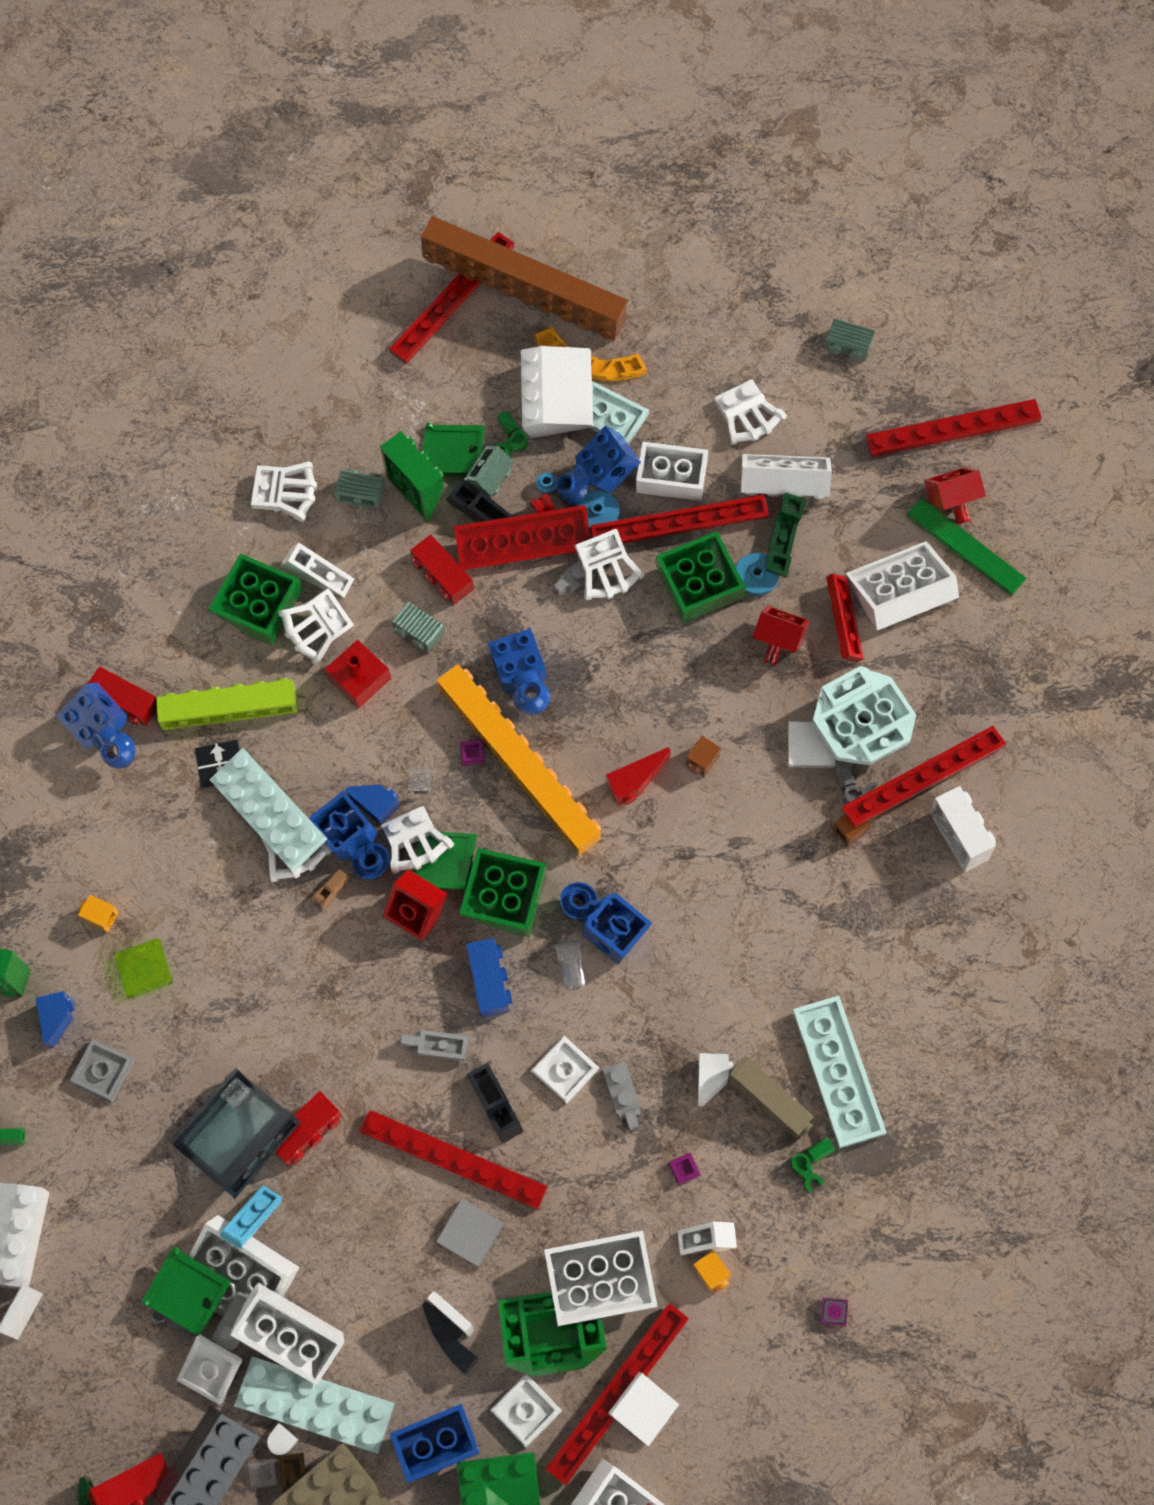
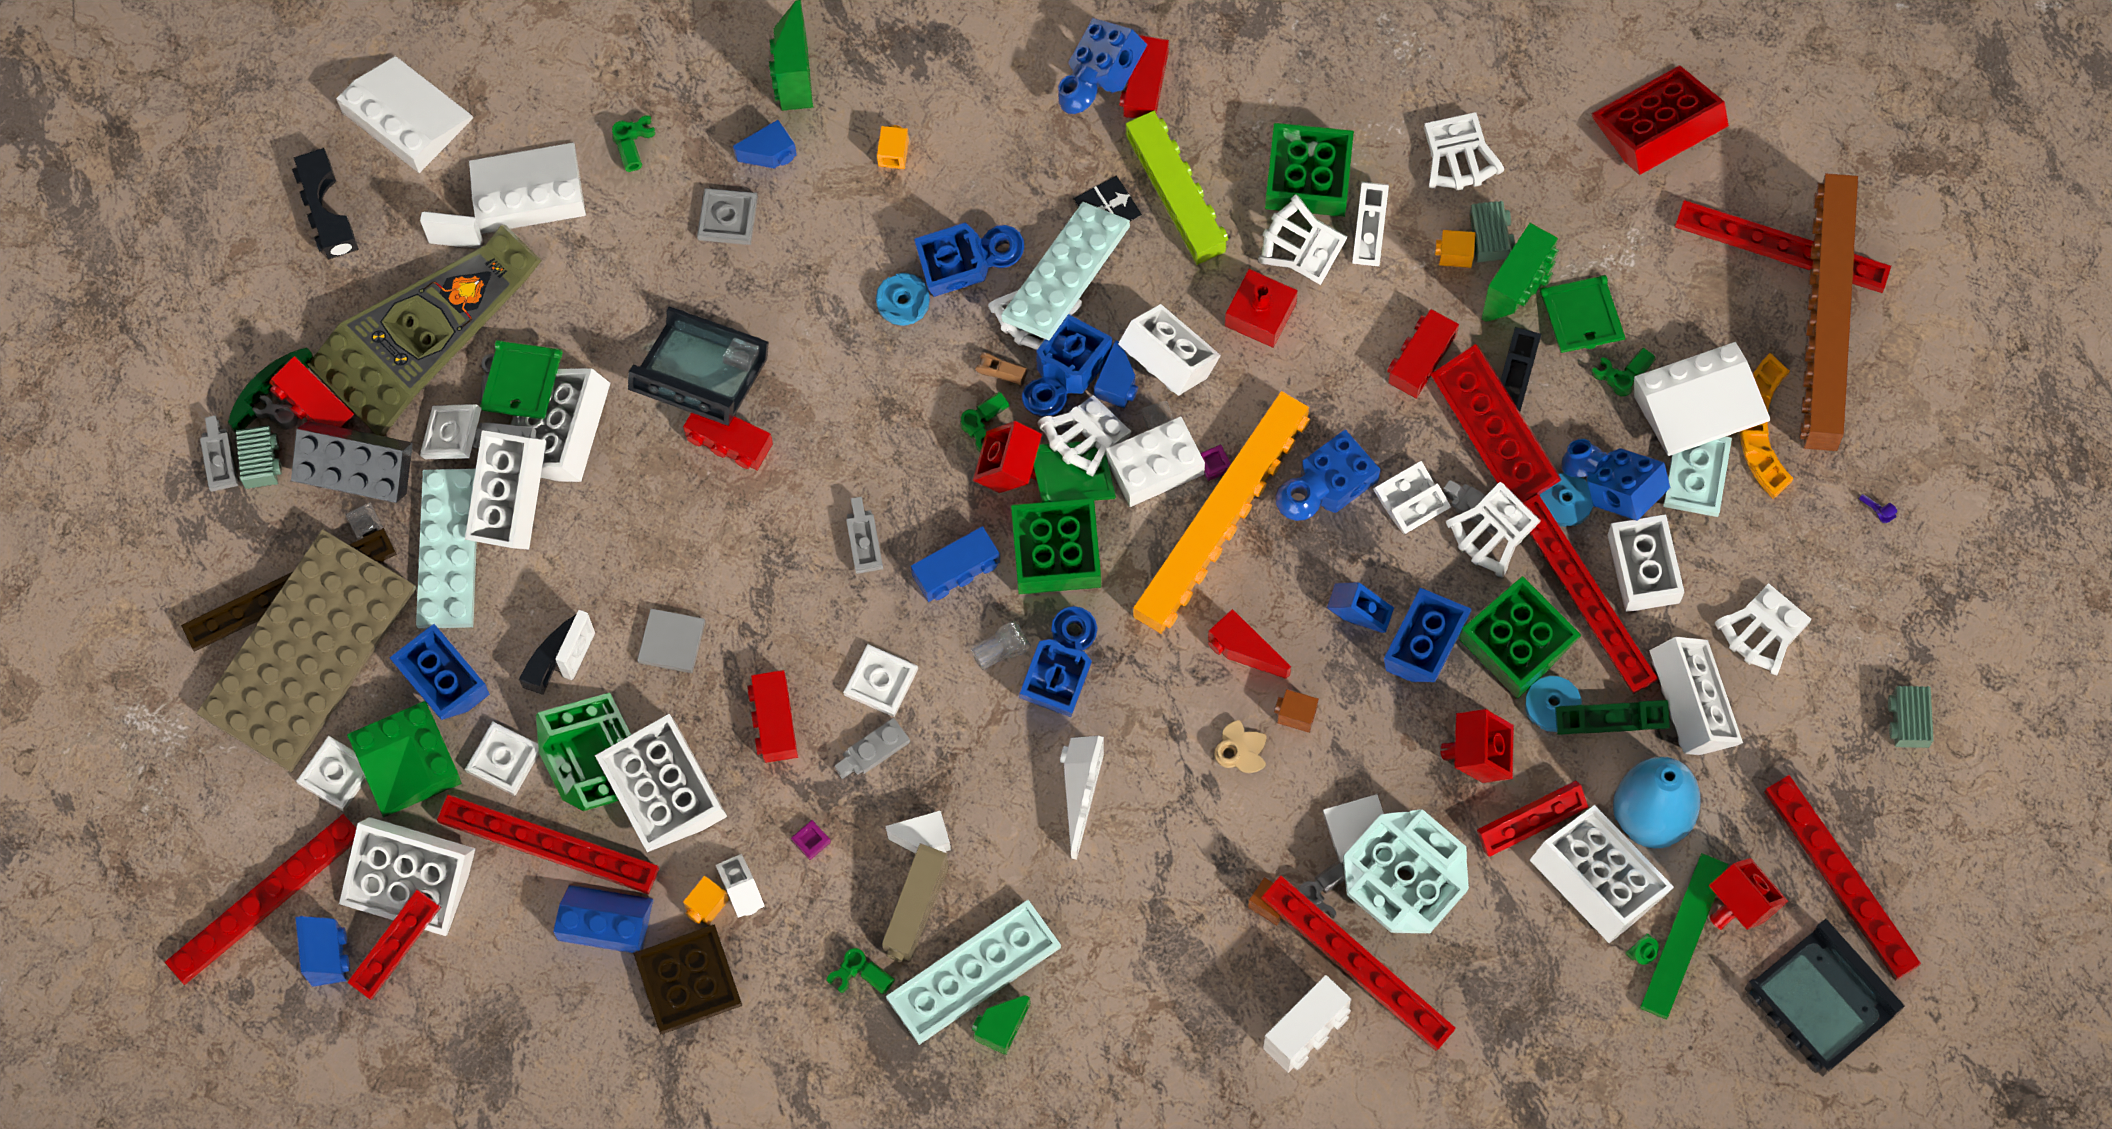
camera: 70 degrees right, 0 degrees up
(124, 1408) = (384, 362): none -> olive wing
(143, 968) = (850, 215): clear neon green tile -> none
(222, 885) = (961, 259): none -> blue brick
(229, 940) = (899, 287): none -> dark azure plate
(251, 1217) = (615, 413): medium azure tile -> none
(281, 1440) = (402, 528): white tile -> none
(316, 341) = (1661, 119): none -> red slope
(364, 517) = (1455, 248): none -> light orange brick
(367, 926) = (972, 419): none -> green bar
(369, 751) = (1169, 349): none -> white brick
(417, 627) = (1342, 352): sand green brick -> none
(454, 1159) = (744, 598): red plate -> none
(457, 794) = (1155, 461): none -> white brick
(489, 470) = (1565, 362): sand green brick -> none
(495, 1102) = (818, 618): black slope -> none
(542, 504) = (1546, 434): red wheel -> none
(546, 488) = (1572, 435): dark azure plate -> none
(556, 618) = (1412, 498): none -> white slope
(569, 1166) = (772, 716): none -> red brick
(633, 683) = (1360, 606): none -> blue slope
(643, 1408) = (538, 874): white tile -> none
(680, 641) = (1425, 637): none -> blue slope
(686, 305) = (1884, 513): none -> dark purple hand
(699, 933) = (1081, 770): none -> white wedge
(699, 1363) = (603, 919): none -> blue slope
(718, 806) = (1244, 747): none -> tan plate
(774, 1307) = (687, 979): none -> dark brown plate
(834, 1312) = (703, 1045): tile -> none
(861, 525) = (1657, 802): none -> dark azure cylinder
(890, 1062) = (1001, 1023): none -> green slope
(969, 576) = (1644, 950): none -> green plate
(1040, 470) = (1824, 998): none -> clear light blue panel

